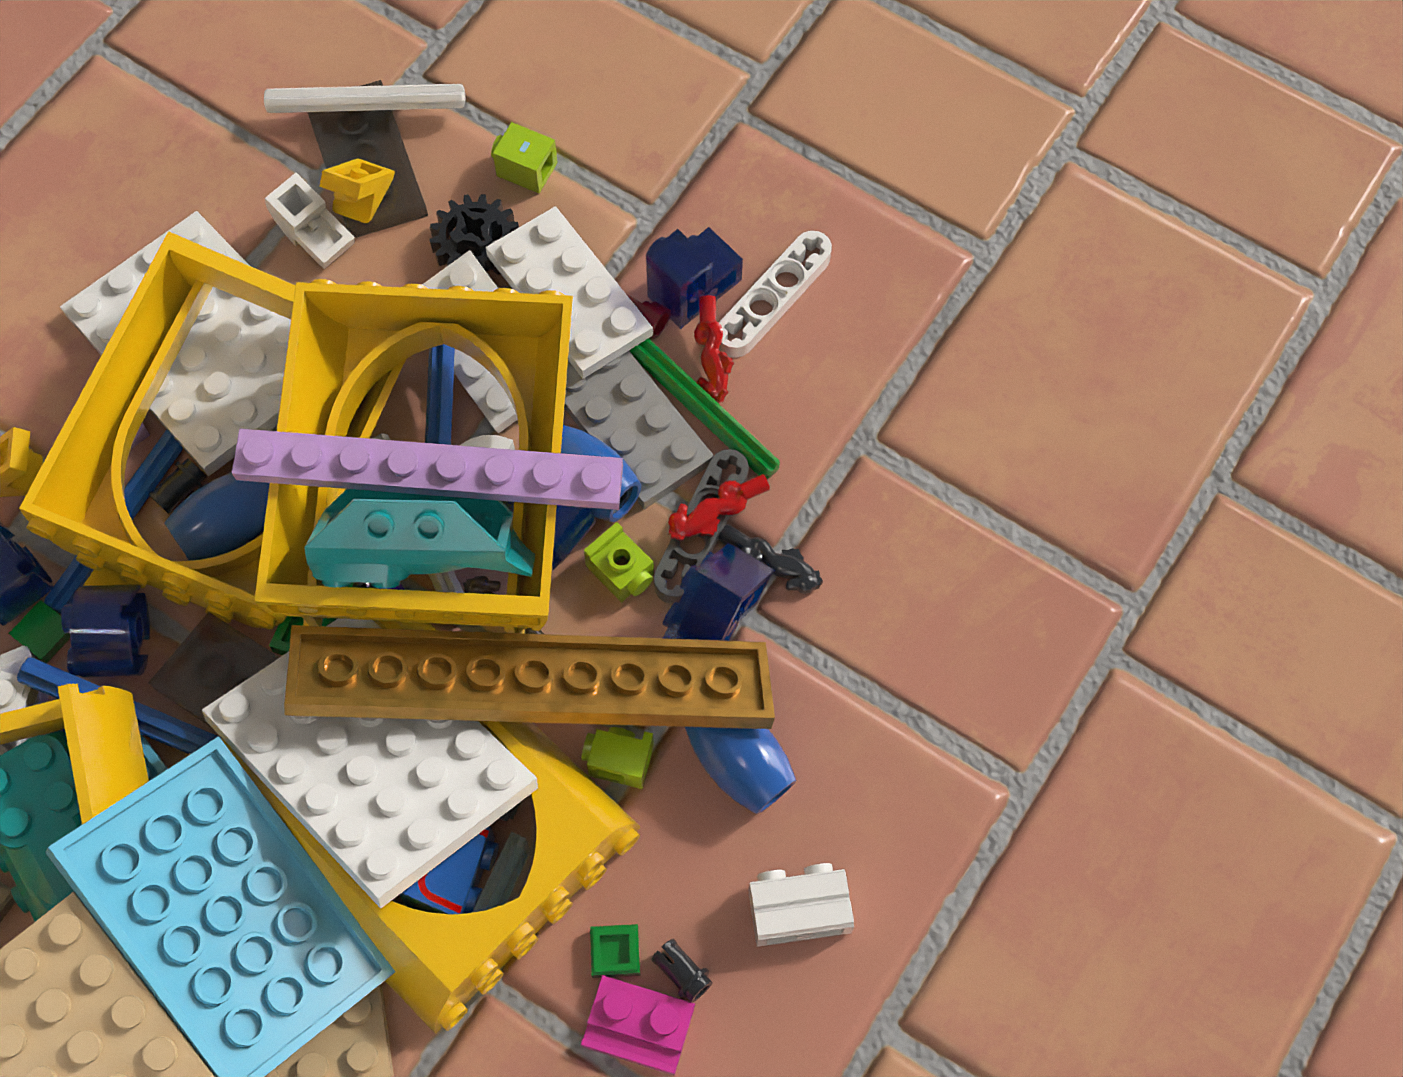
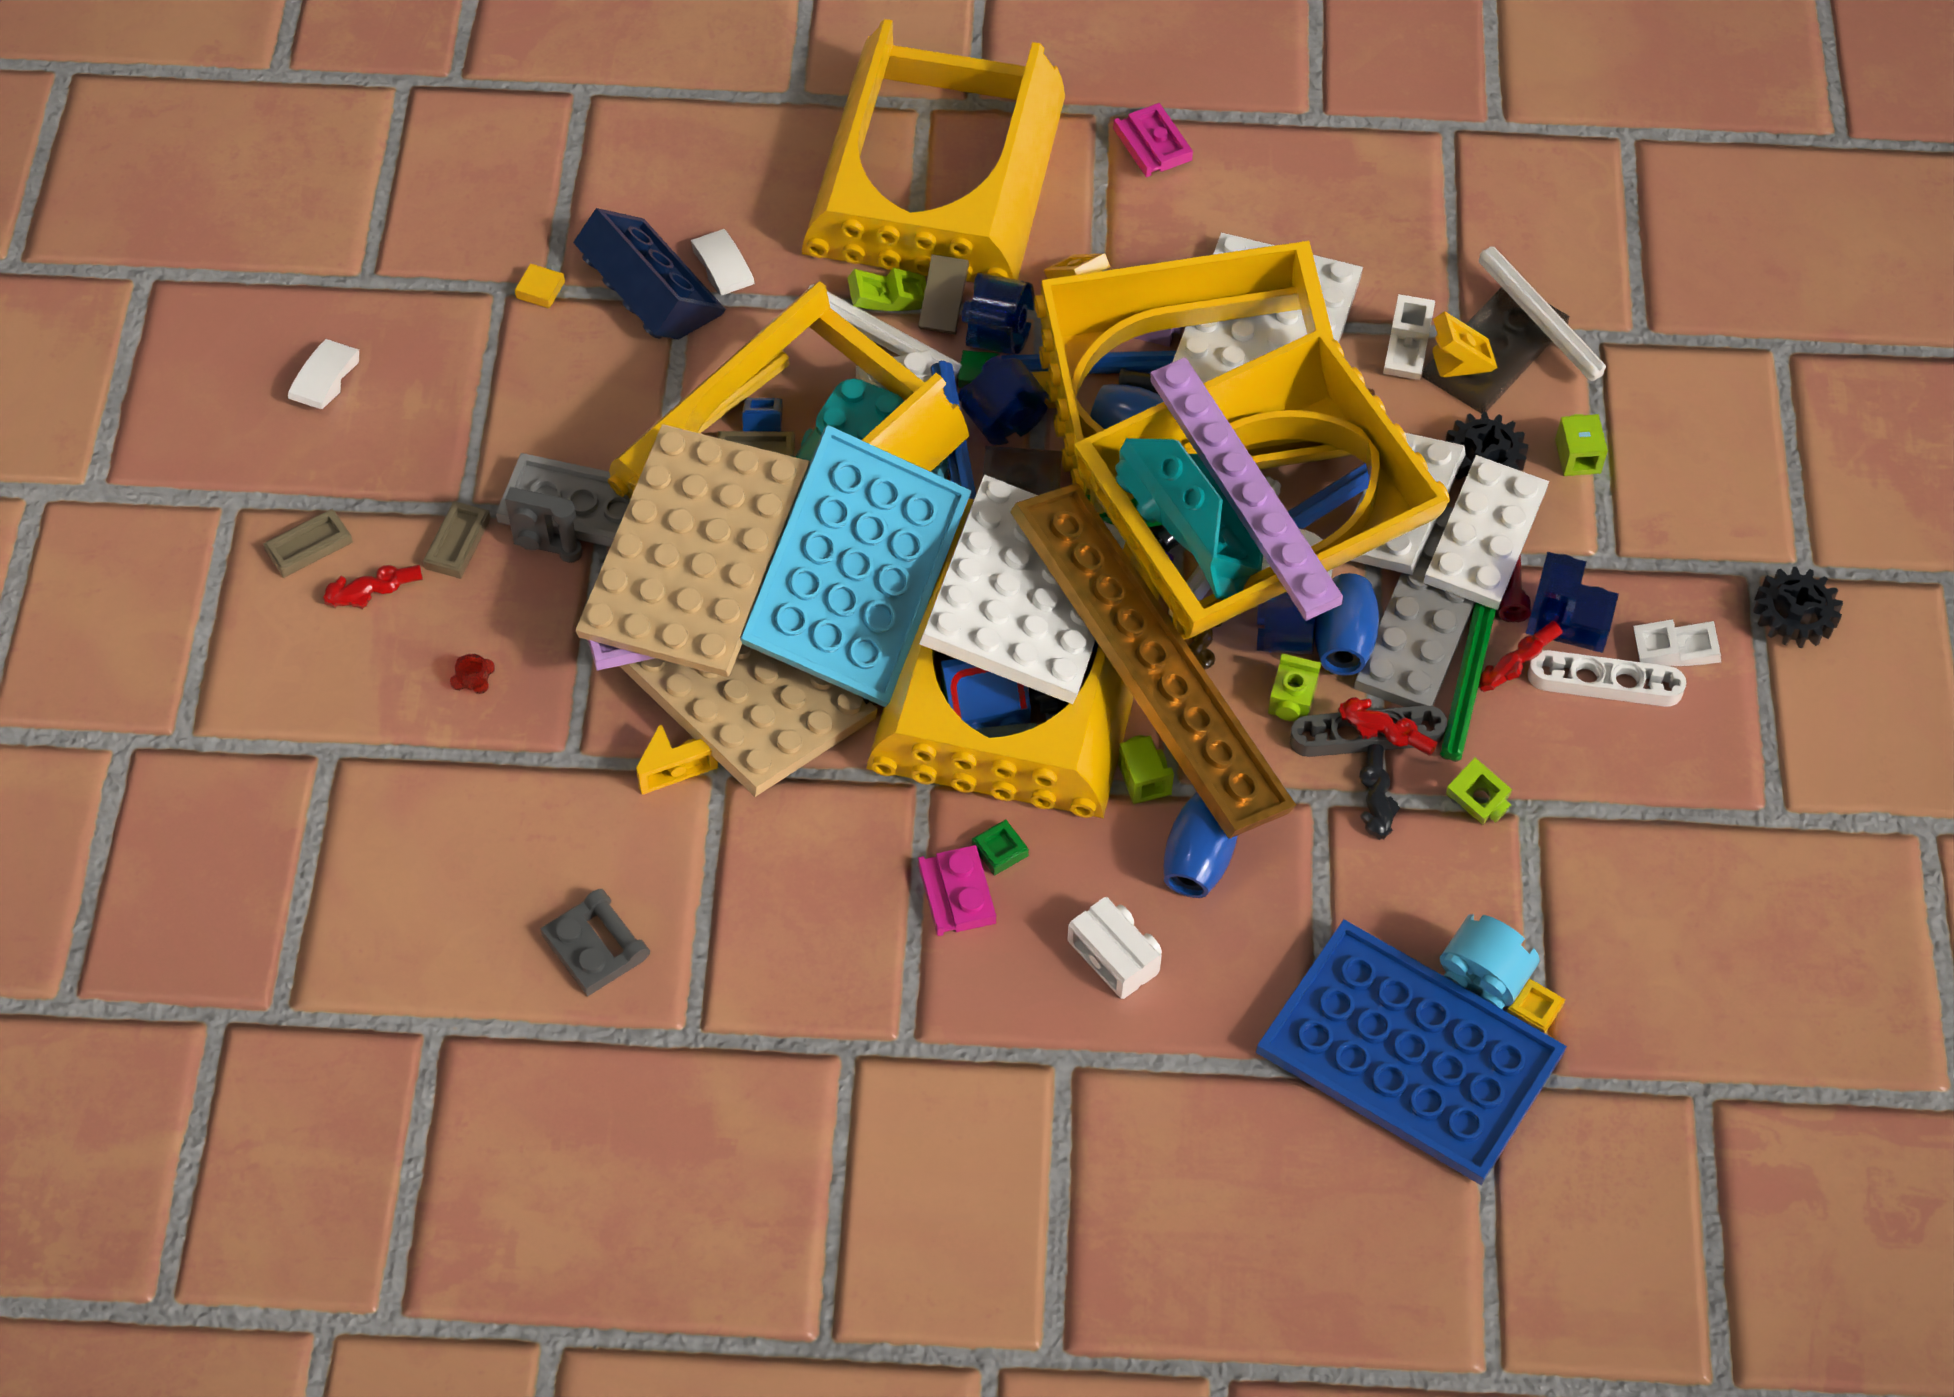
camera: 60 degrees right, 10 degrees down
(683, 972) = (1011, 903): black pin -> none
(717, 596) = (1316, 761): clear blue brick -> none
(776, 215) = (1677, 646): none -> white slope
(804, 101) = (1797, 607): none -> black gear
(815, 477) = (1479, 778): none -> lime brick
(1017, 574) = (1489, 960): none -> medium azure brick
(1056, 700) = (1411, 1051): none -> blue plate
(1067, 564) = (1536, 1005): none -> yellow tile

